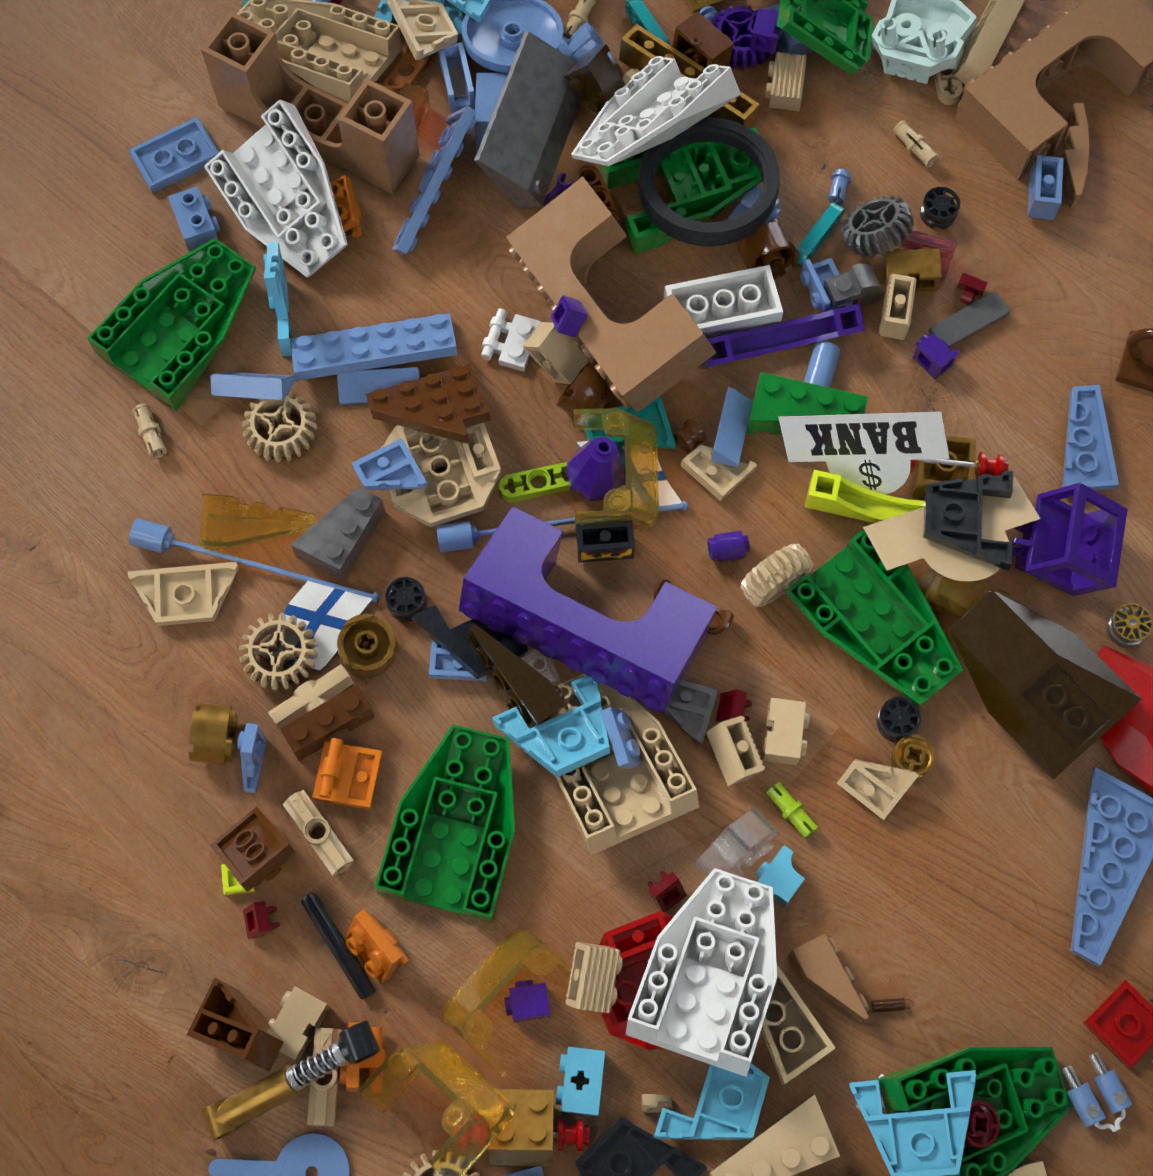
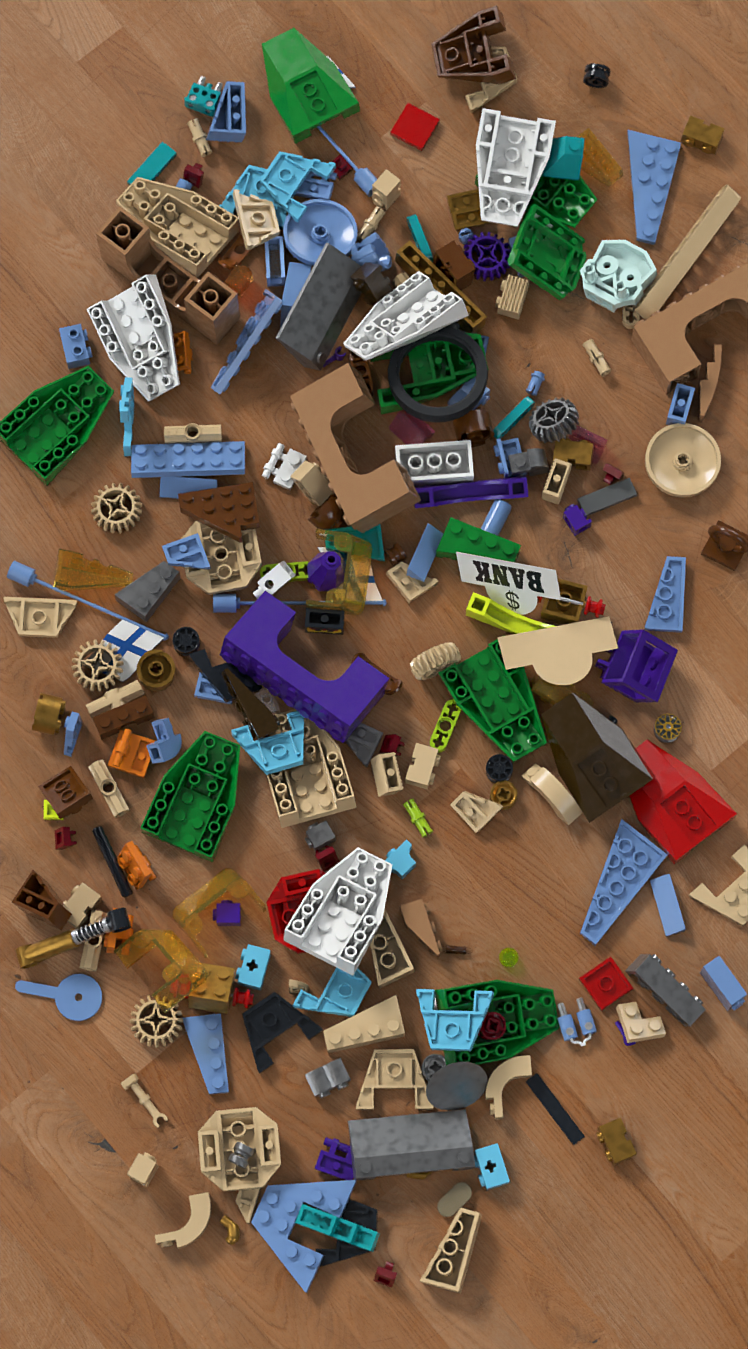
camera: 10 degrees right, 5 degrees up
(149, 431) = (27, 498): tan pin -> none
(174, 154) = (66, 293): medium blue tile -> none
(251, 385) = (101, 476): medium blue slope -> none
(359, 314) = (179, 434): none -> tan piece
(399, 752) = (167, 742): none -> medium blue brick
(532, 486) = (279, 575): none -> white torso
(569, 316) = (323, 463): dark purple slope -> none
(593, 977) = (269, 903): tan brick -> none
(620, 736) = (312, 755): medium blue plate -> none
(649, 858) = (319, 835): none -> flat silver brick
(677, 264) = (410, 429): none -> clear pink panel
(728, 546) = (408, 635): dark purple brick -> none
(739, 845) = (378, 835): clear brick -> none
(765, 31) = (499, 260): dark purple brick -> none
(818, 650) = (435, 737): none -> lime beam
(939, 208) = (603, 409): black wheel -> none
(955, 516) = (559, 637): black wing -> none
(971, 1005) = (508, 957): none -> clear neon green plate
(990, 740) = (553, 792): none -> tan arch
(1065, 256) = (682, 460): none -> tan dish

